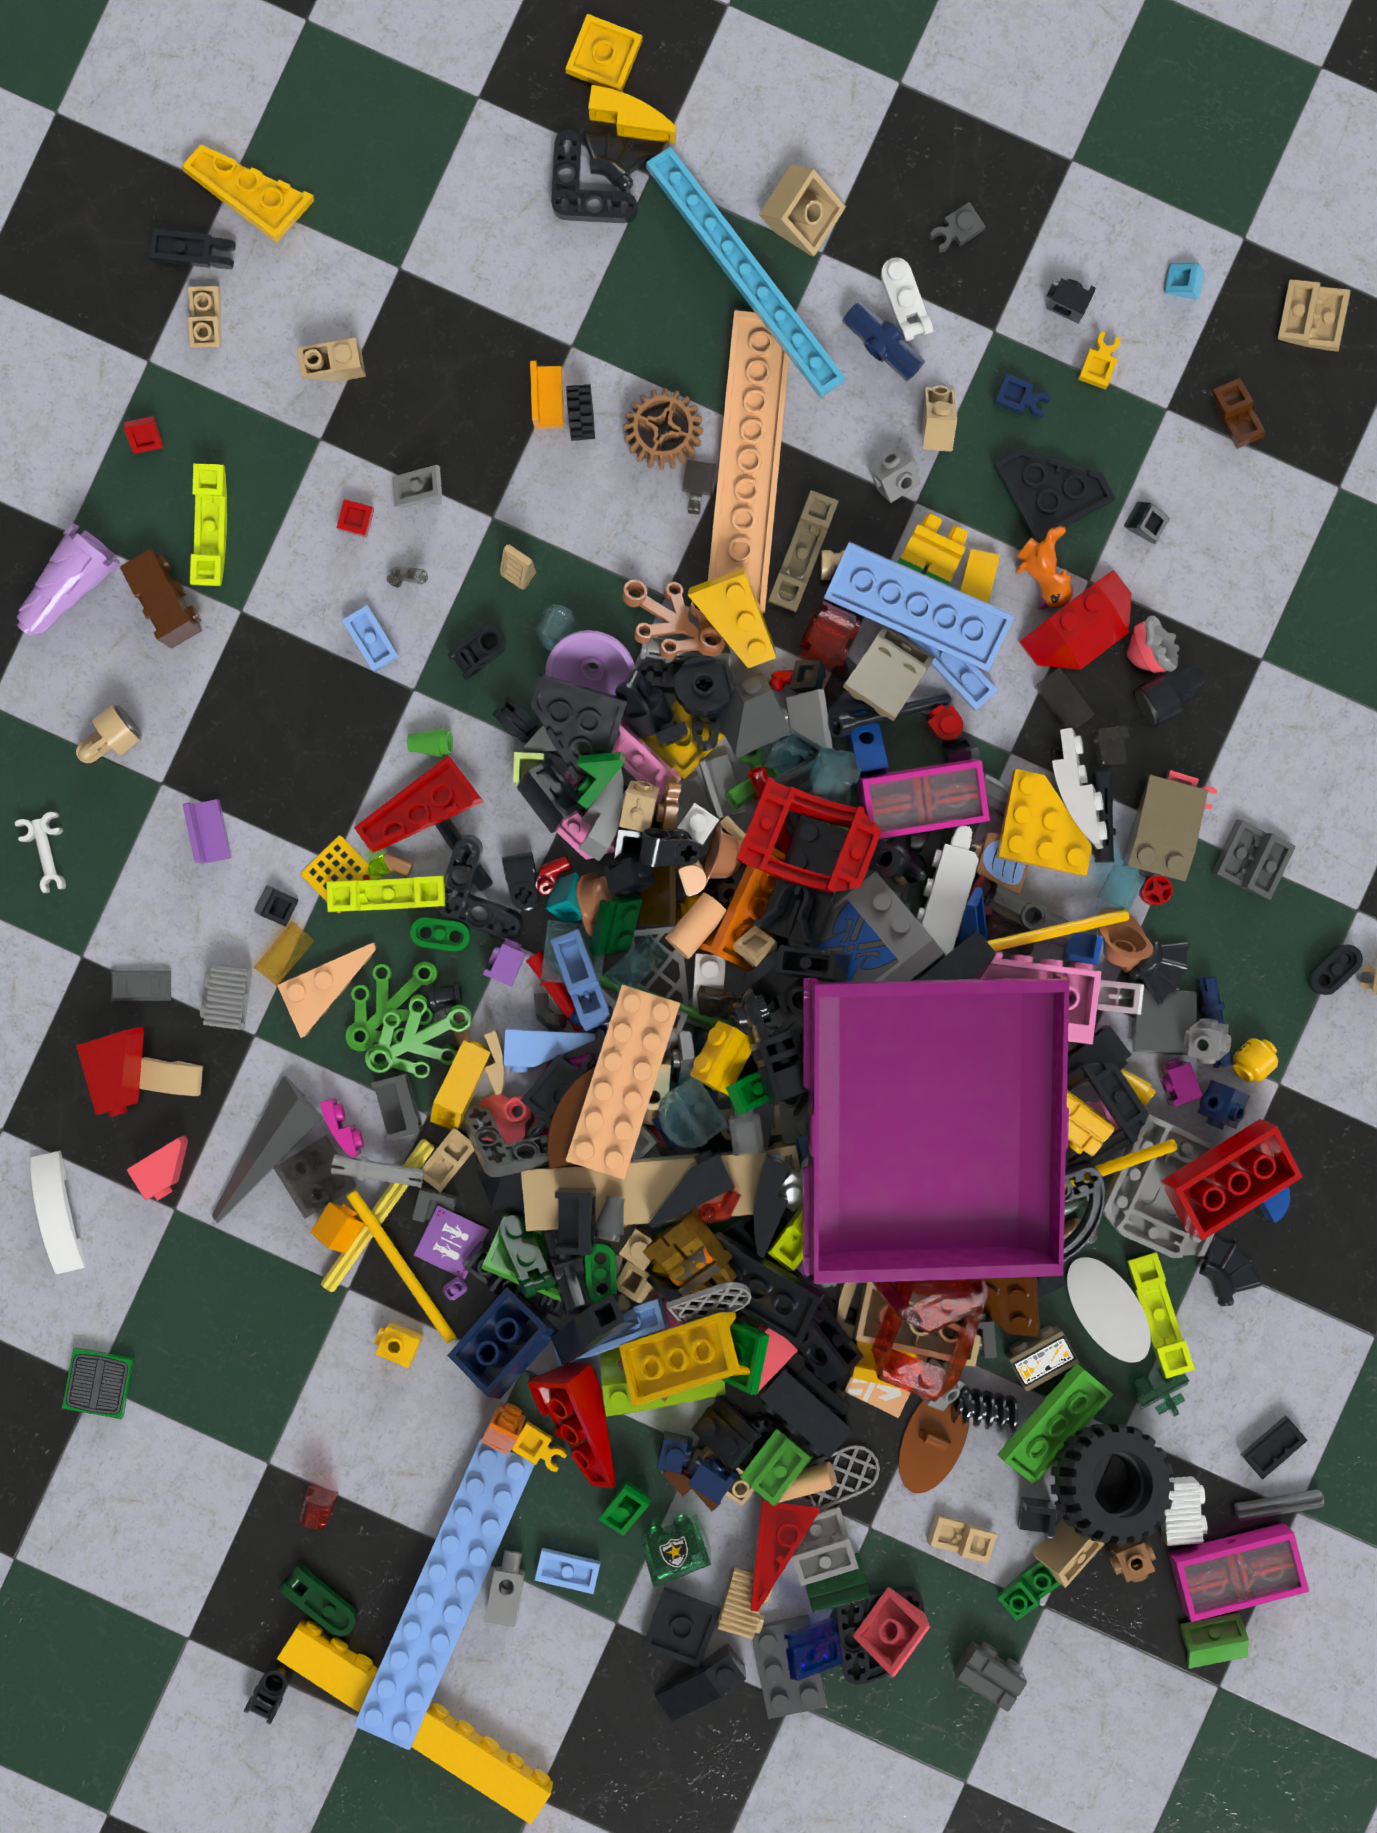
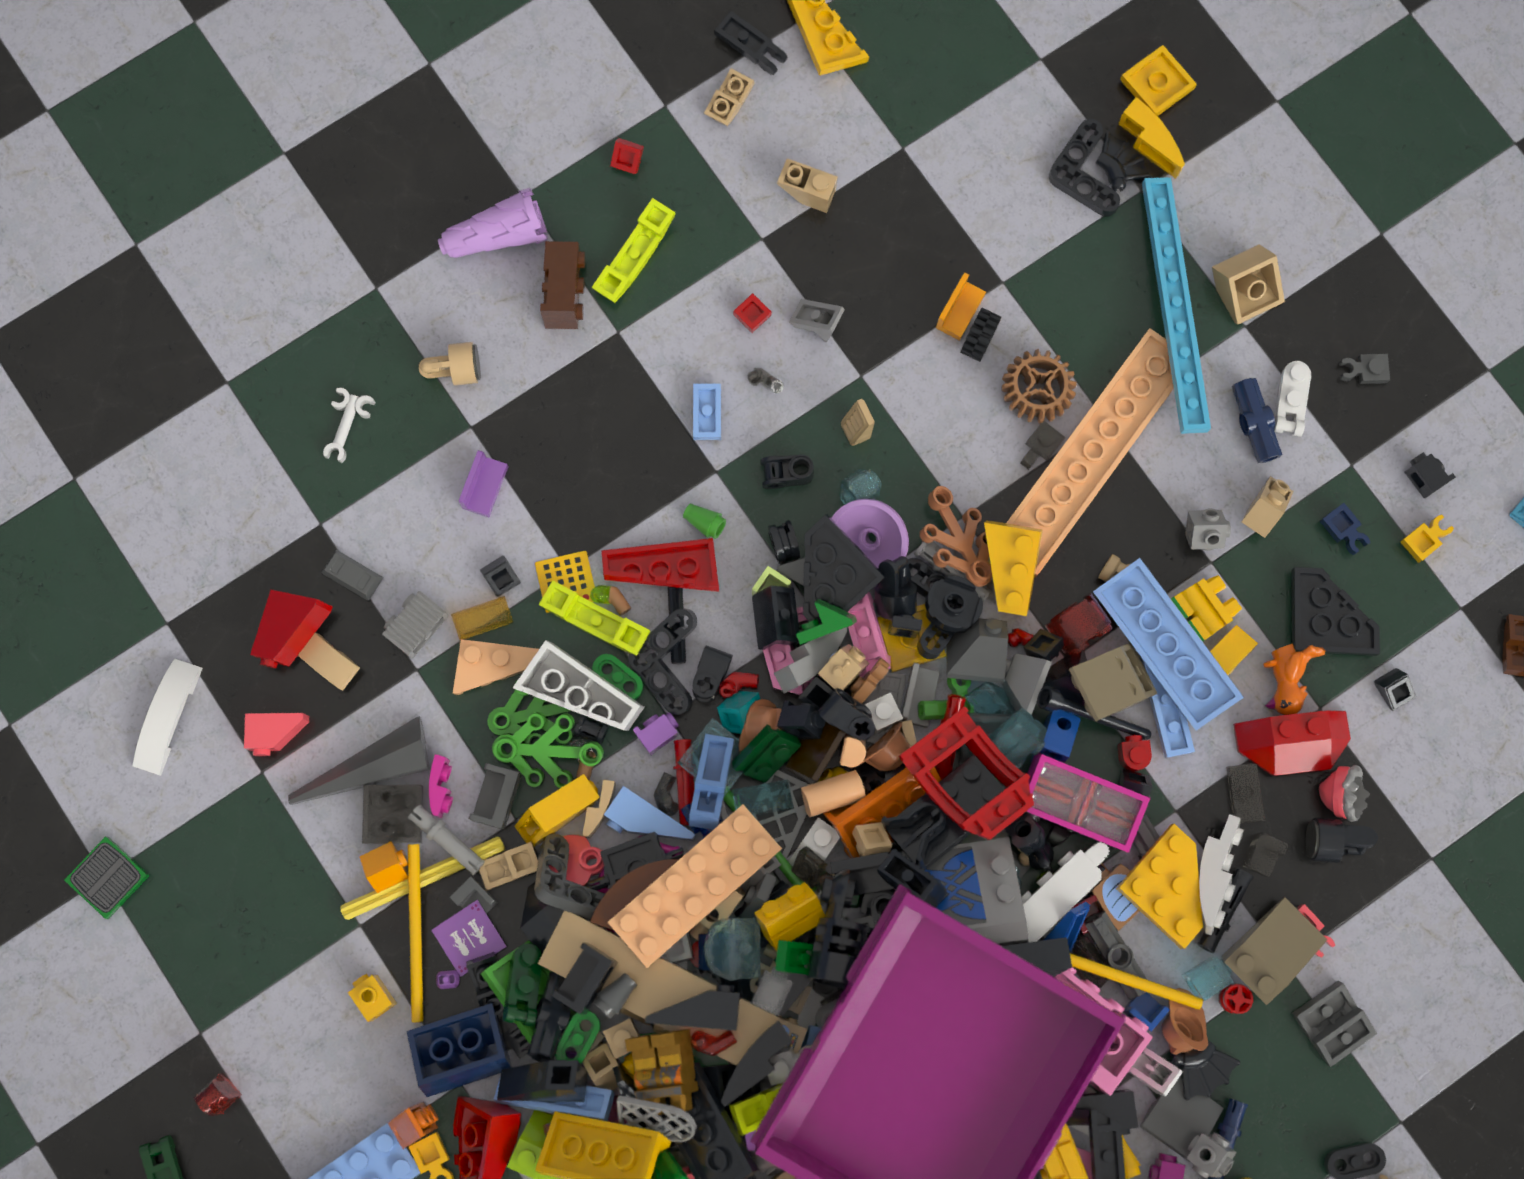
camera: 30 degrees right, 10 degrees down
(403, 968) = (572, 685): none -> white wedge
(803, 551) = (1097, 546): dark tan slope -> none

